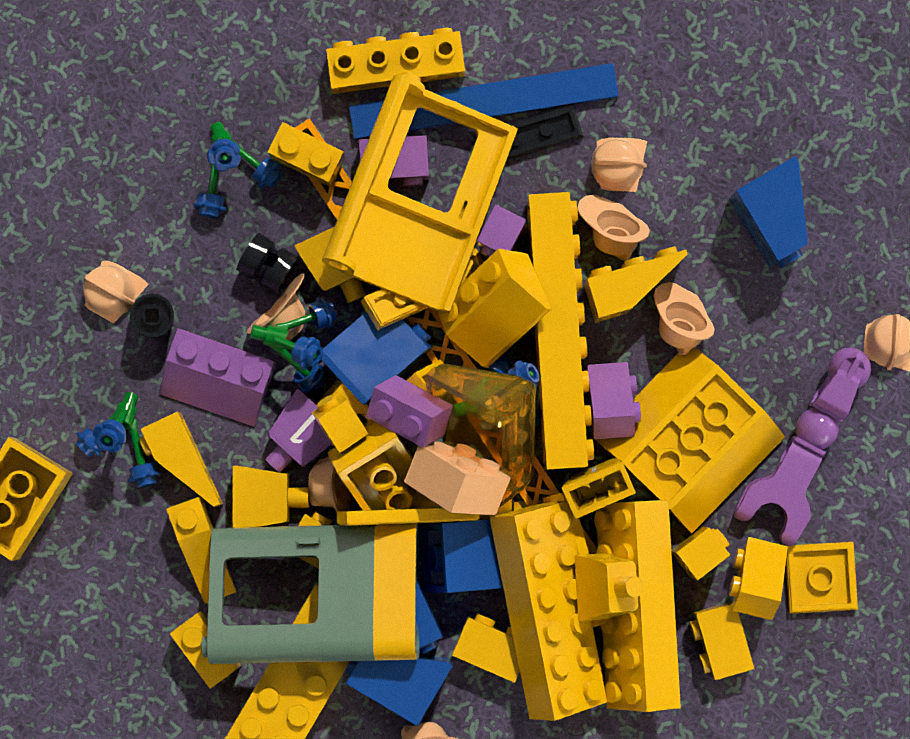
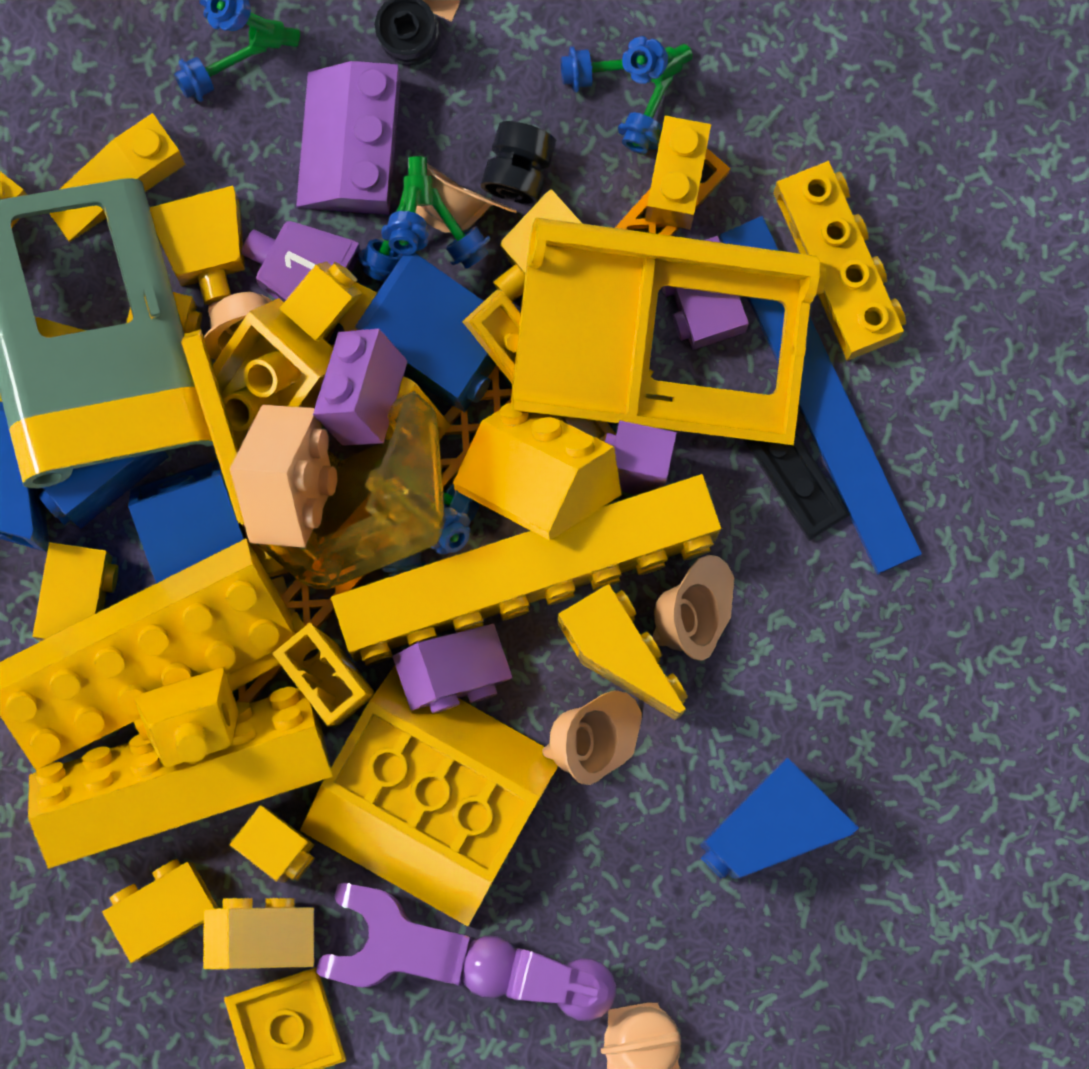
camera: 75 degrees right, 5 degrees down
(176, 451) = (235, 113): yellow slope -> none
(619, 163) = (786, 599): light nougat piece -> none

